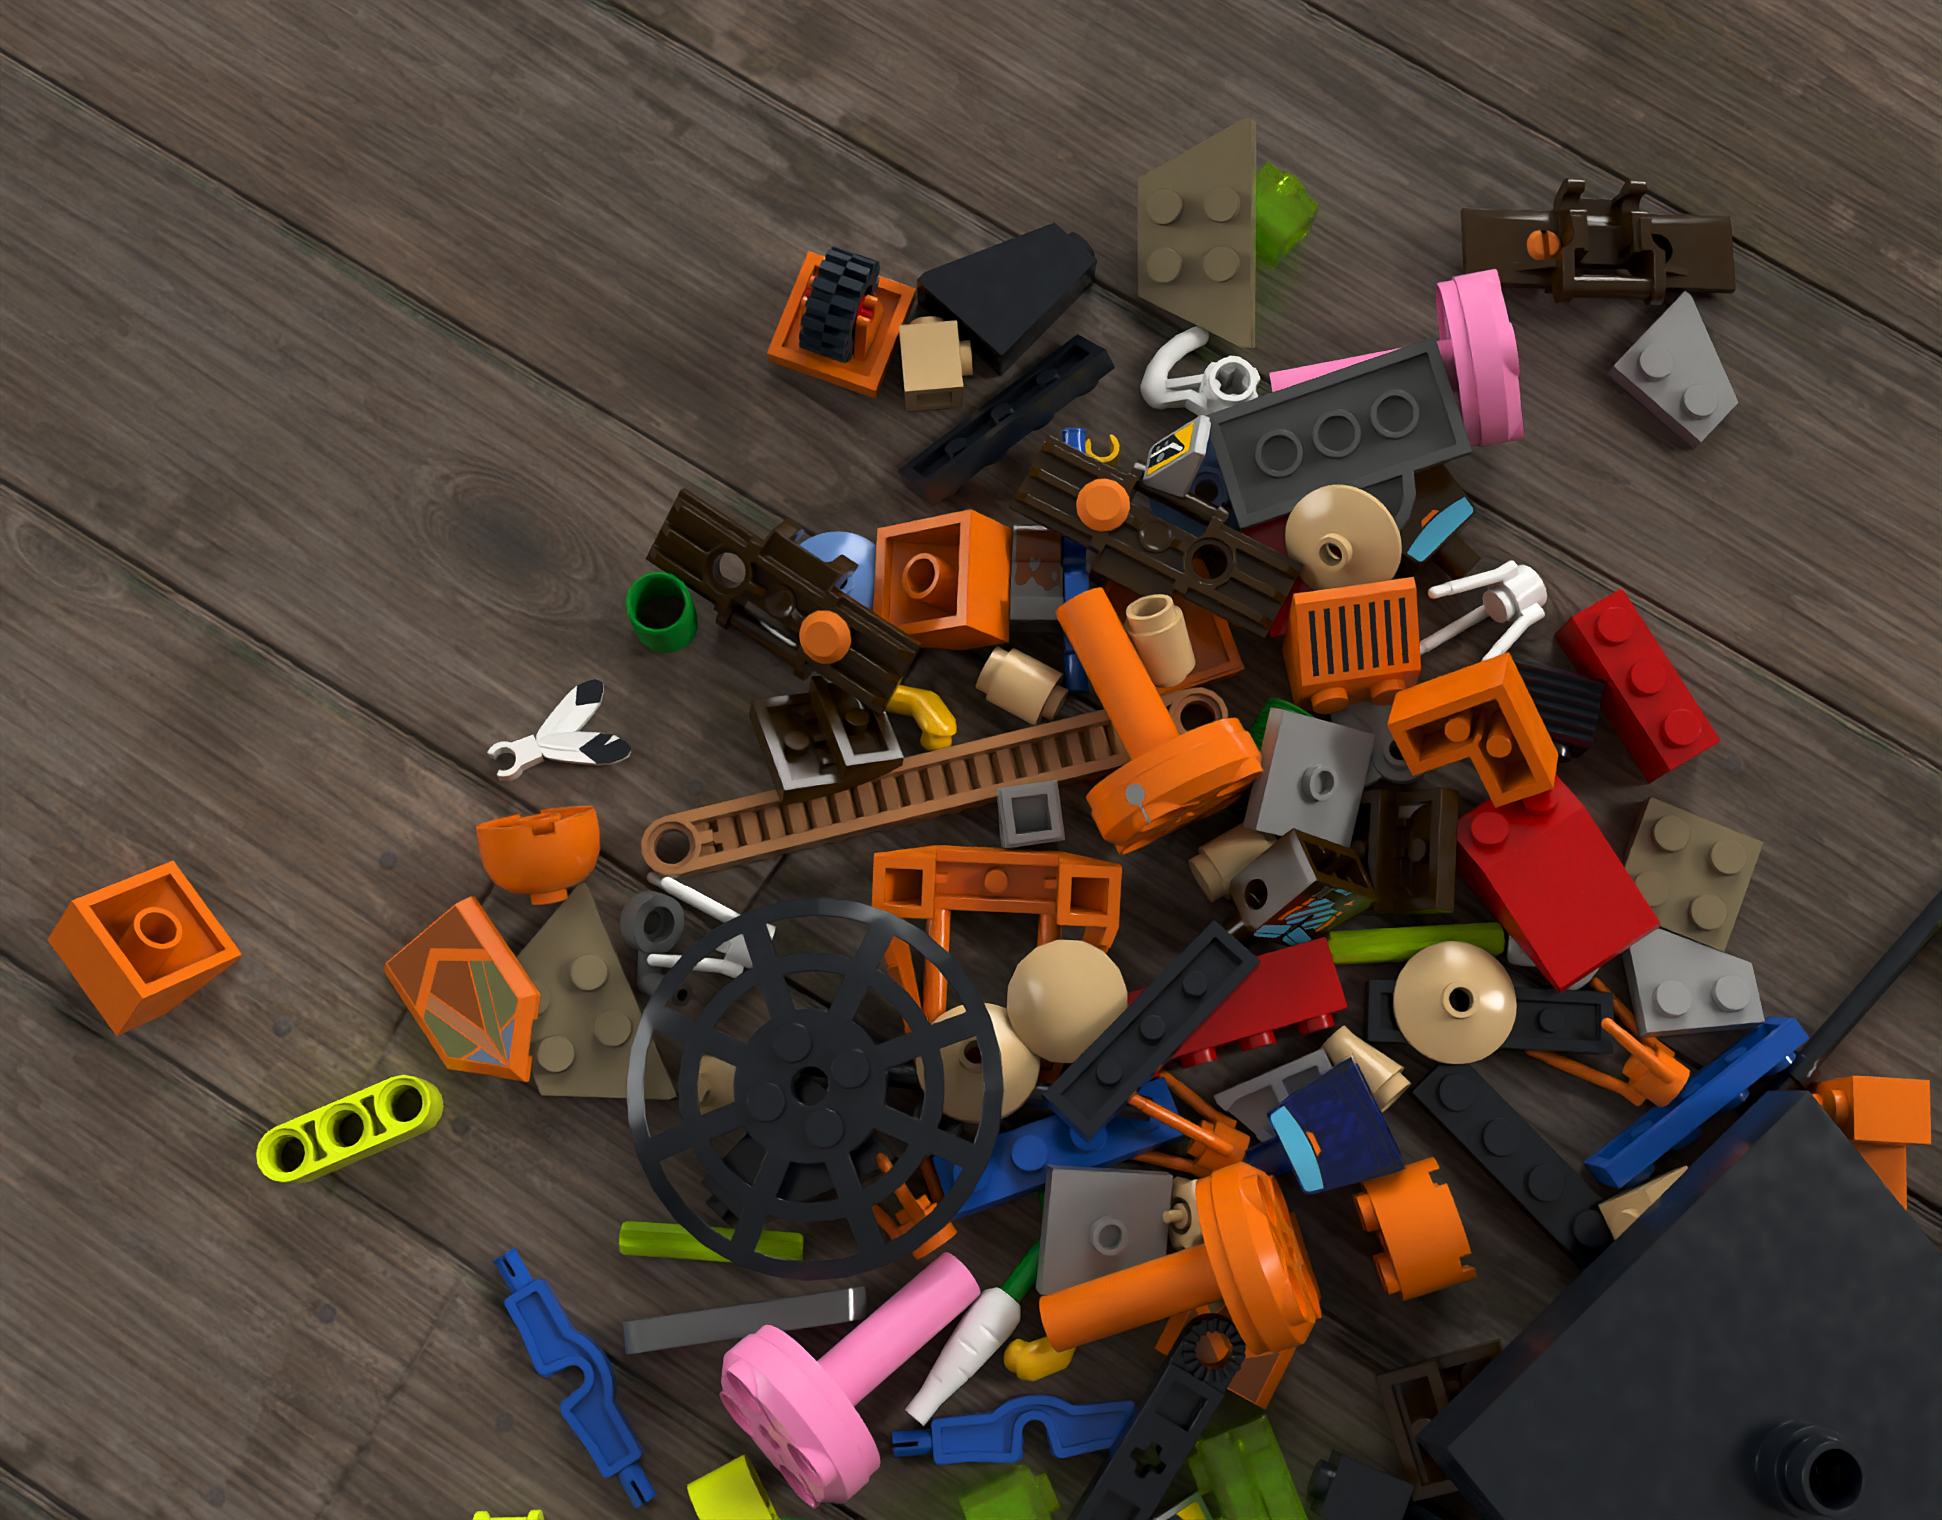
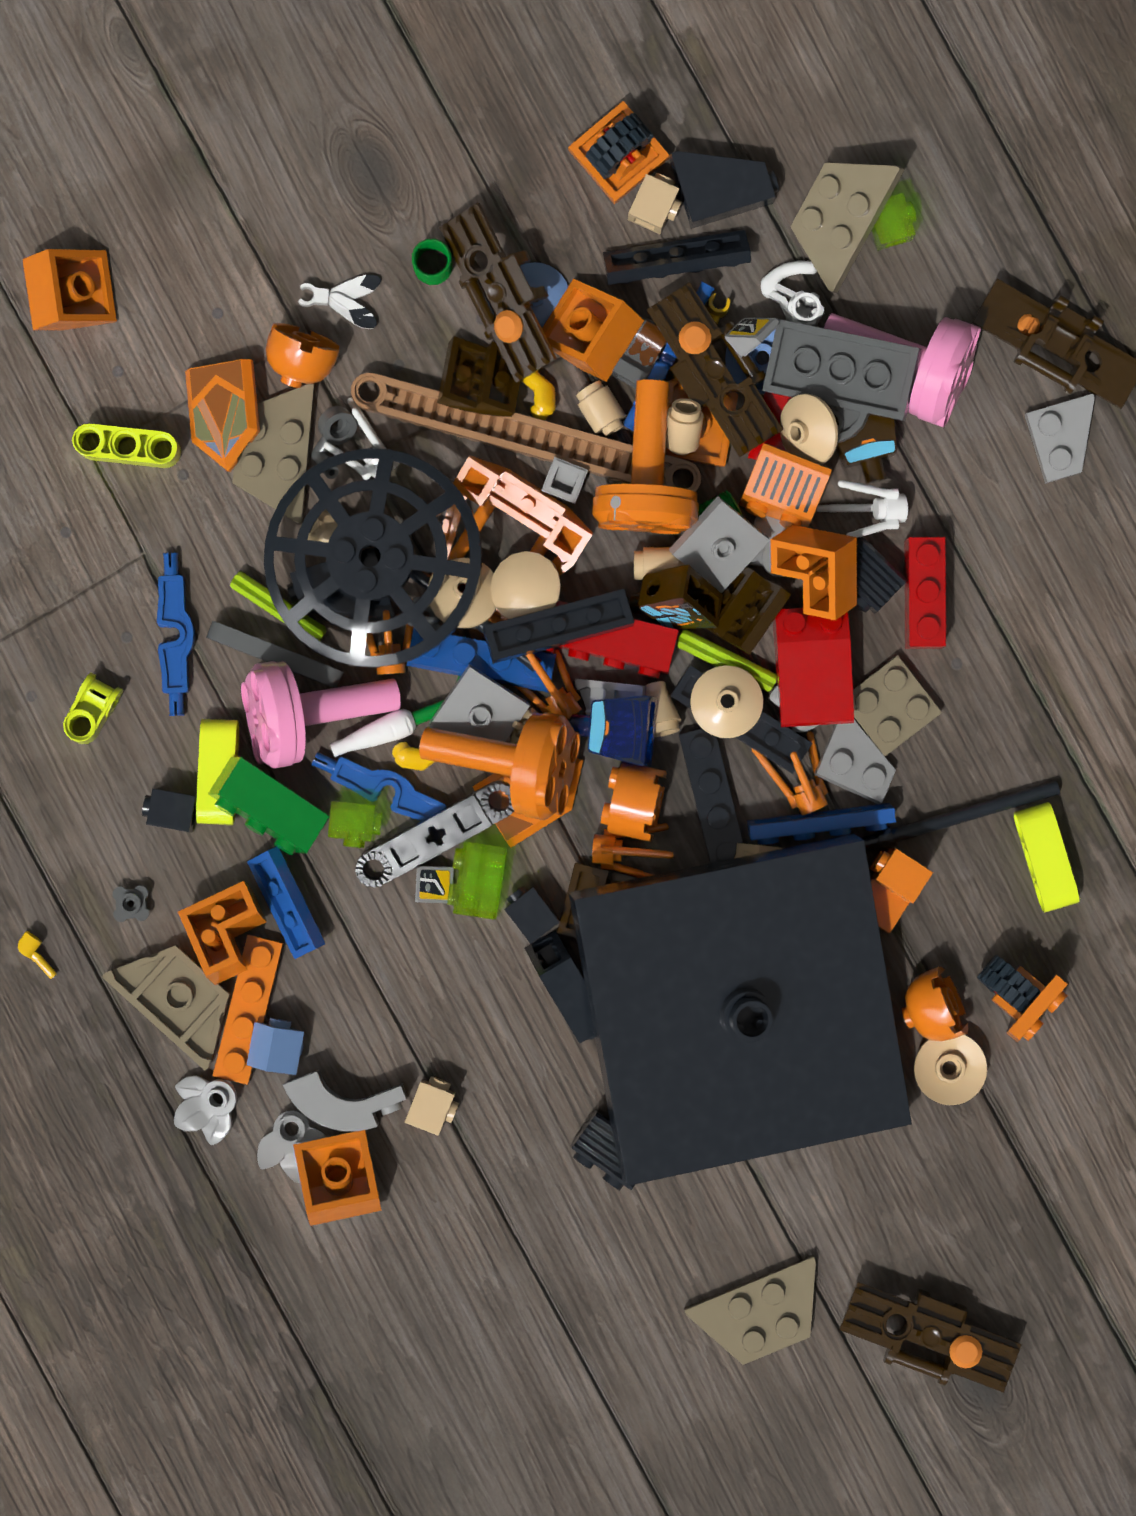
camera: 25 degrees right, 10 degrees up
(1414, 1326) = (609, 849): none -> orange plant

